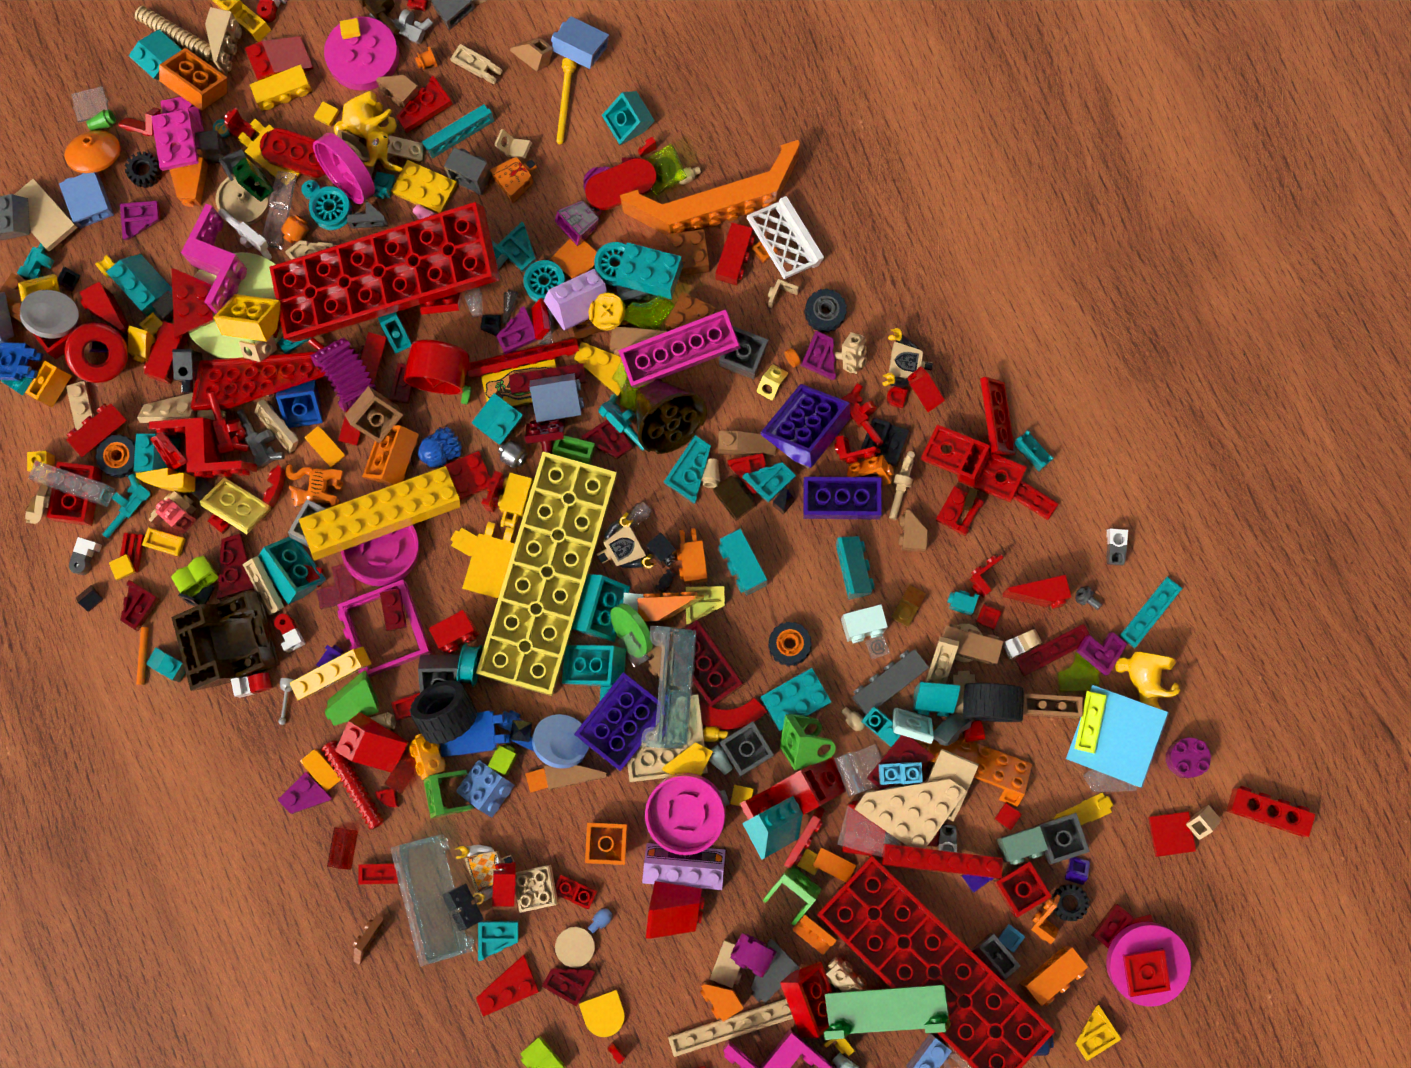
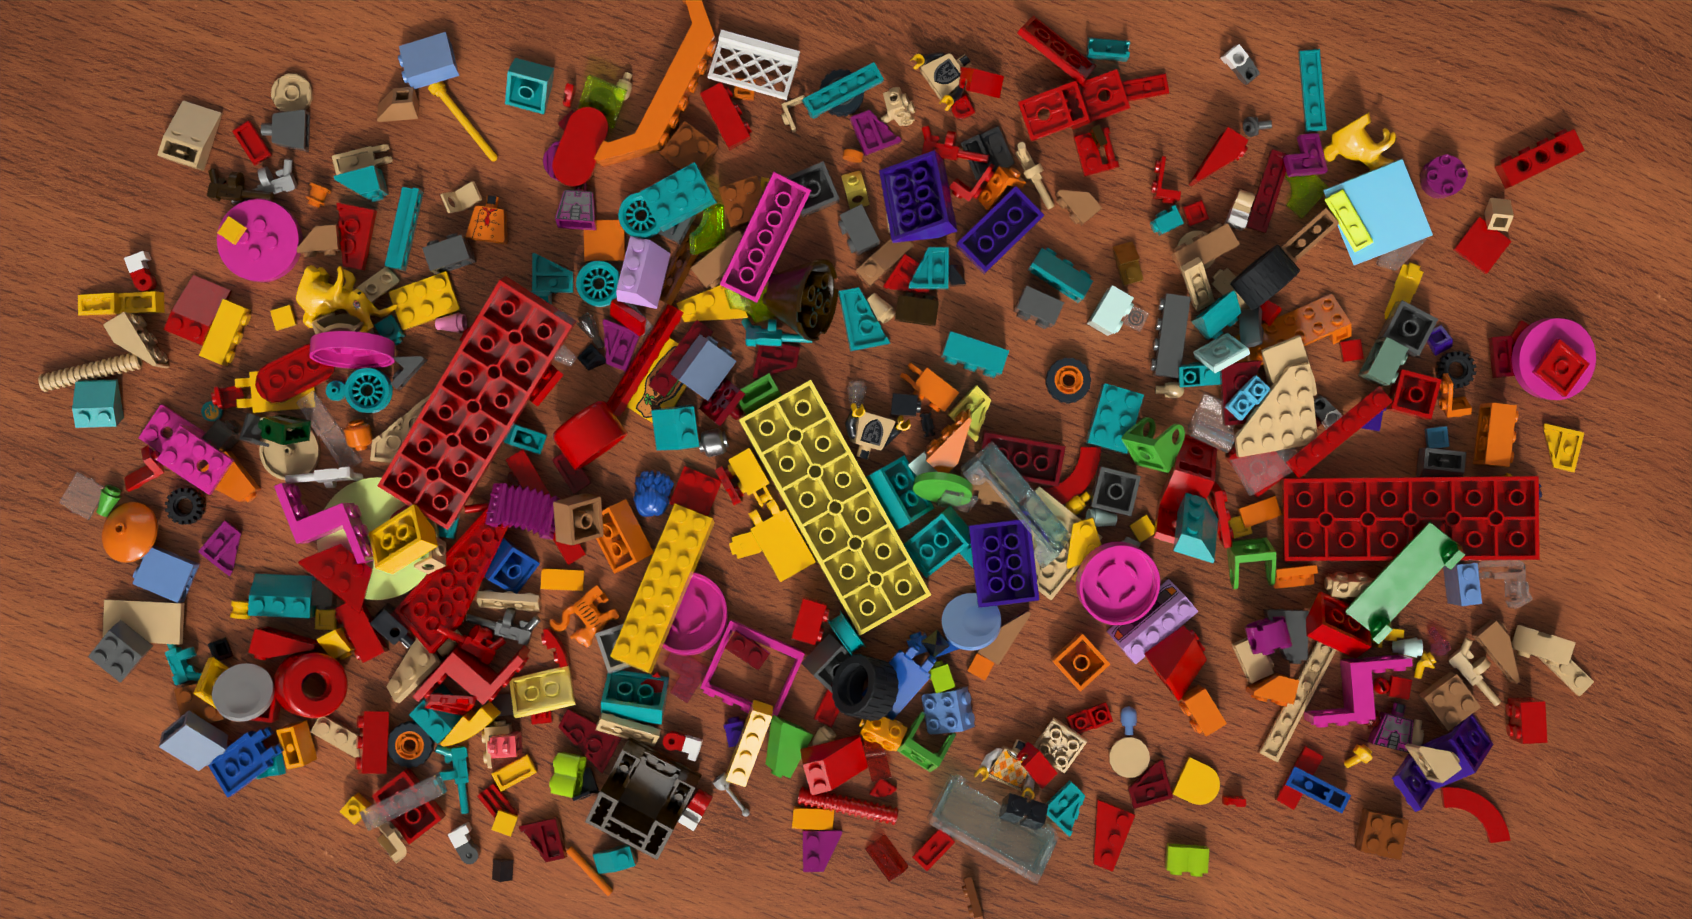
camera: 50 degrees left, 10 degrees up
(193, 79) = (148, 395): orange brick -> none
(464, 77) = (366, 182): none -> teal slope
(466, 395) = (632, 435): bright green tile -> none
(607, 311) = (676, 261): yellow tile -> none
(655, 964) = (1202, 711): none -> orange brick
(747, 407) = (859, 230): none -> dark grey brick
(817, 573) = (1038, 307): none -> dark grey brick
(826, 307) = (843, 90): none -> teal piece

